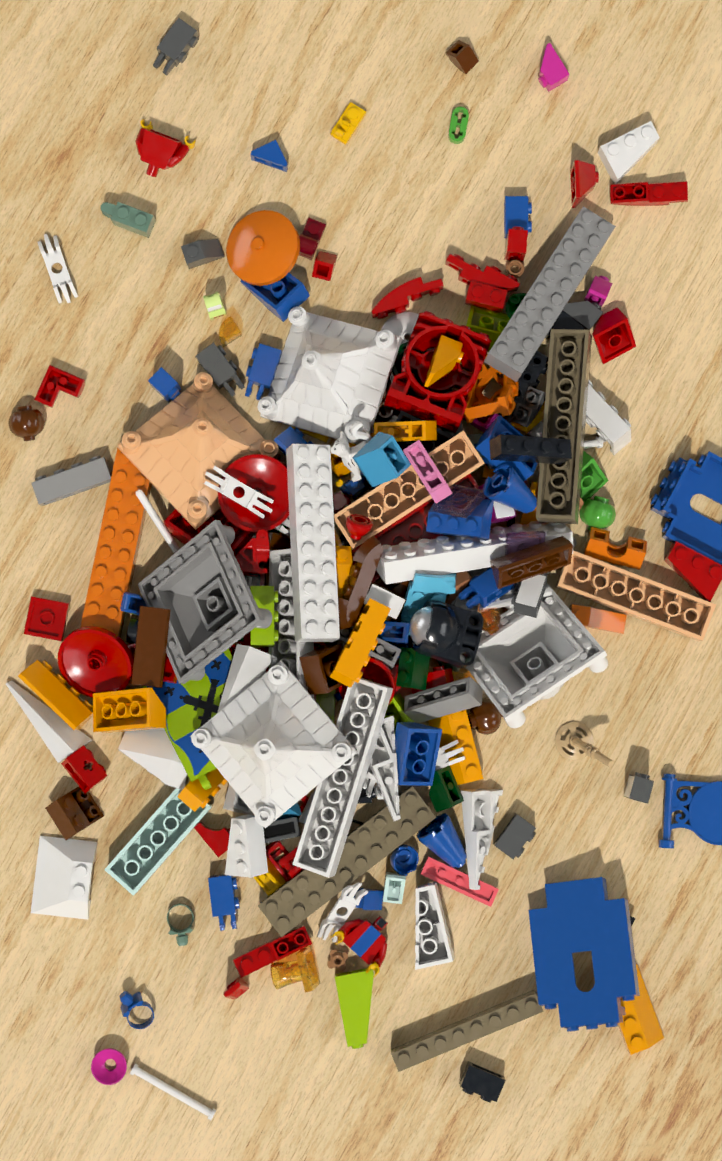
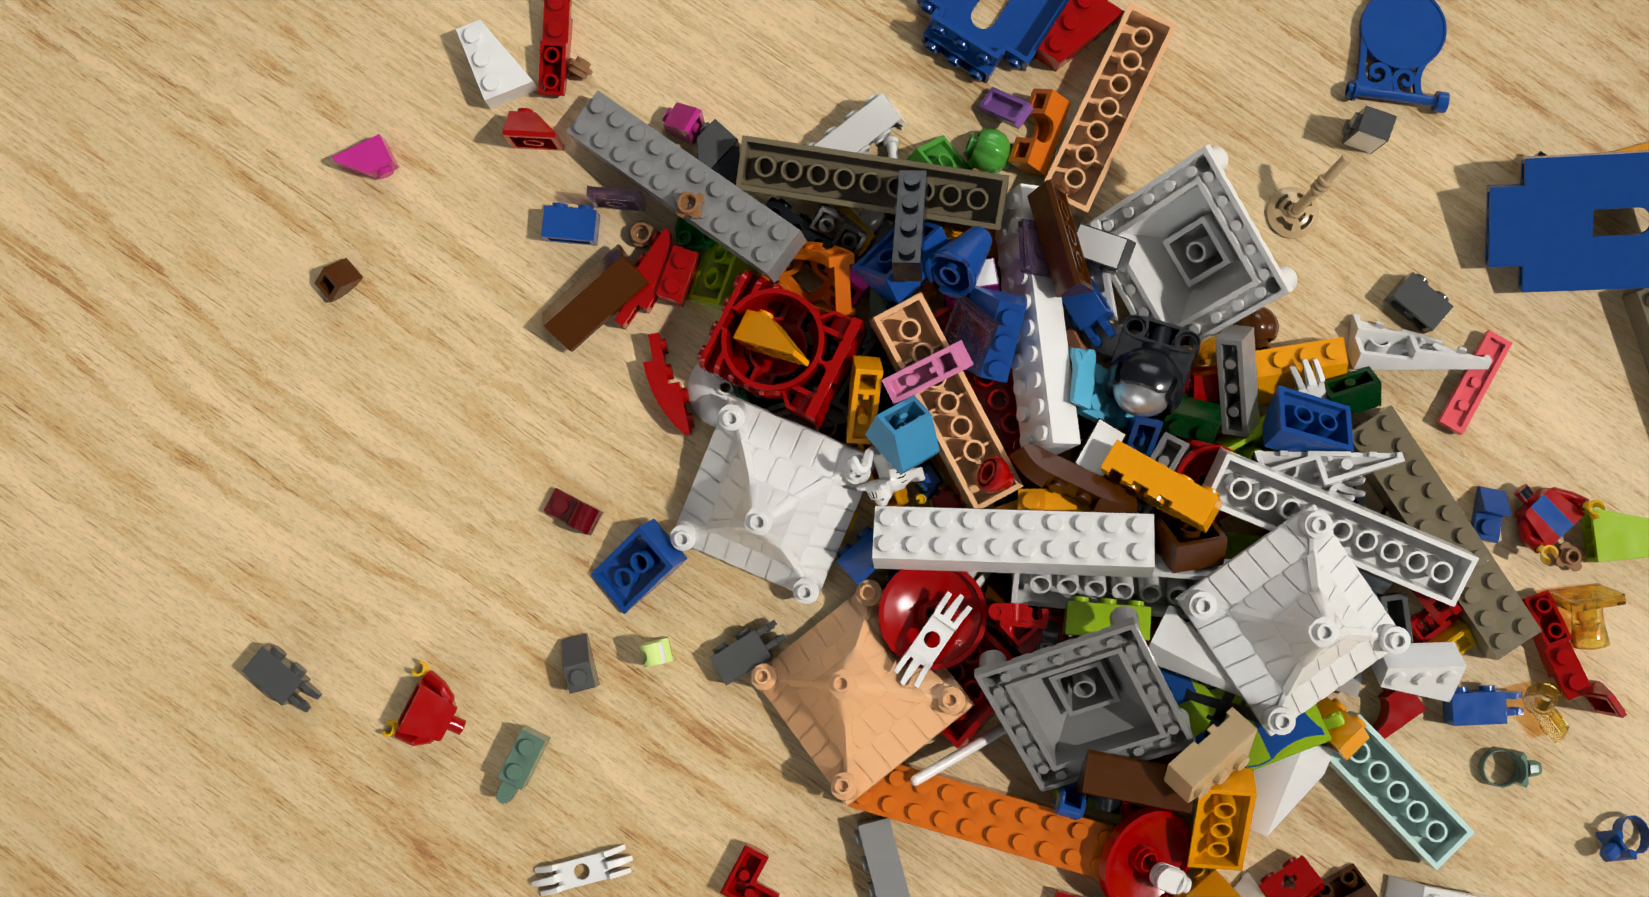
camera: 80 degrees left, 0 degrees up
(83, 680) = (1169, 879): none -> white arm
(165, 385) = (764, 731): blue brick -> none
(170, 694) = (1213, 759): none -> tan wedge
(227, 944) = (1545, 711): none -> clear yellow plate
(228, 332) = (694, 636): clear yellow brick -> none
(263, 247) = (581, 578): orange dish -> none
(263, 369) = (751, 591): blue hinge -> none
(270, 155) = (451, 557): blue slope -> none
(324, 265) = (613, 494): red brick -> none
(337, 920) = (1519, 552): white piece -> none
(348, 123) = (415, 445): yellow plate -> none
(394, 888) = (1475, 470): light aqua slope -> none
(404, 859) = (1443, 454): blue hair -> none
(431, 930) = (1548, 424): white wedge -> none
(443, 840) = (1421, 398): blue cone -> none
(463, 125) = (435, 287): bright green beam -> none
(463, 237) = (594, 298): none -> reddish brown slope
(491, 620) = (1130, 305): clear orange brick -> none
(516, 244) = (609, 226): red arch -> none
(537, 247) = (616, 198): none -> tile
(537, 291) = (685, 199): none -> medium nougat plate
(599, 619) = (1131, 165): orange slope -> none
(613, 335) = (746, 108): red slope -> none
(631, 522) = (1005, 107): none -> medium lavender tile
(633, 213) = (580, 67): none -> medium nougat plate

